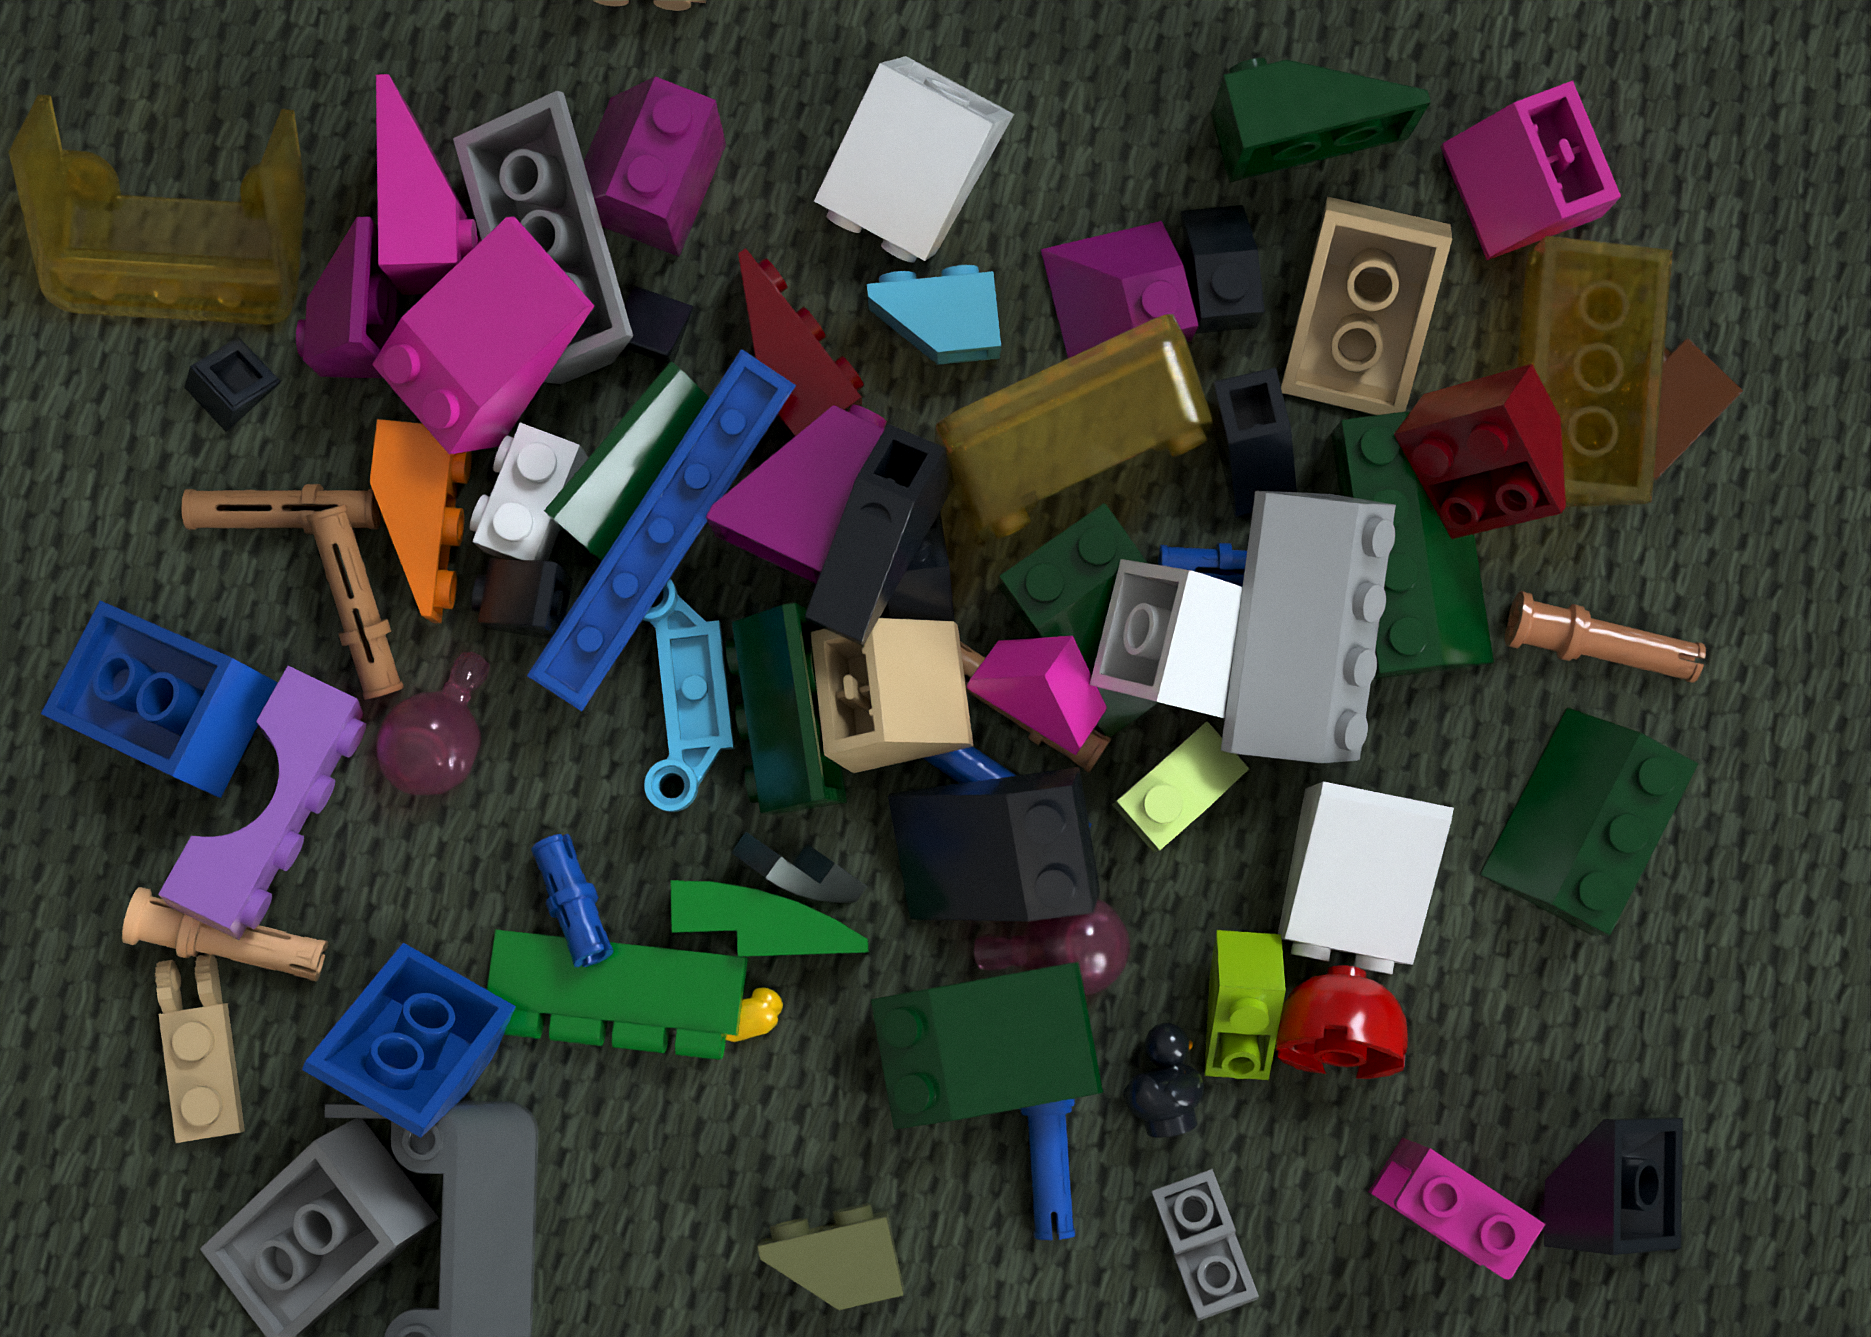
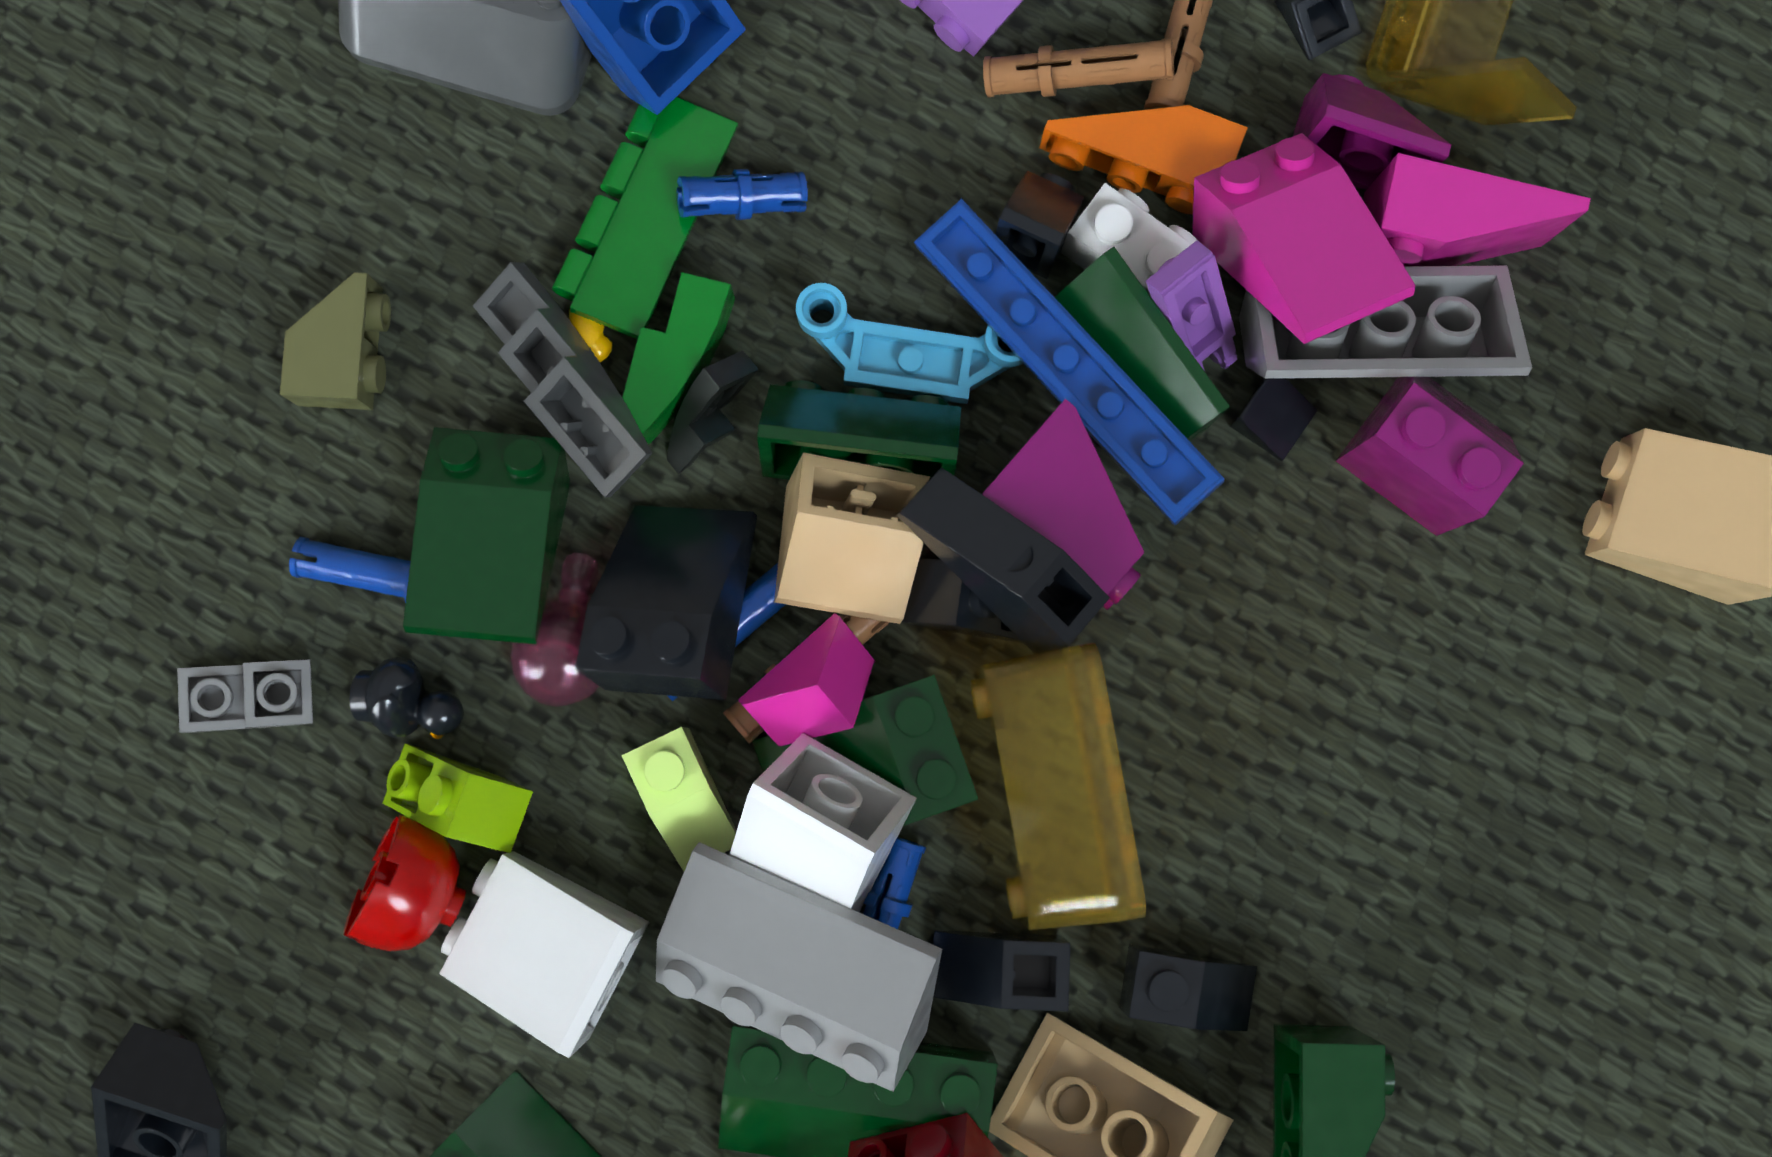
camera: 105 degrees right, 0 degrees up
(432, 736) = (934, 110): clear pink hair -> none
(576, 421) = (1195, 304): none -> medium lavender hinge
(791, 347) = (1213, 536): dark red slope -> none
(807, 1017) = (564, 378): none -> dark grey slope
(911, 158) = (1379, 709): white slope -> none
(942, 316) = (1210, 697): medium azure slope -> none
(1117, 284) = (1193, 879): magenta slope -> none
(1456, 1208) = (185, 946): dark pink panel -> none

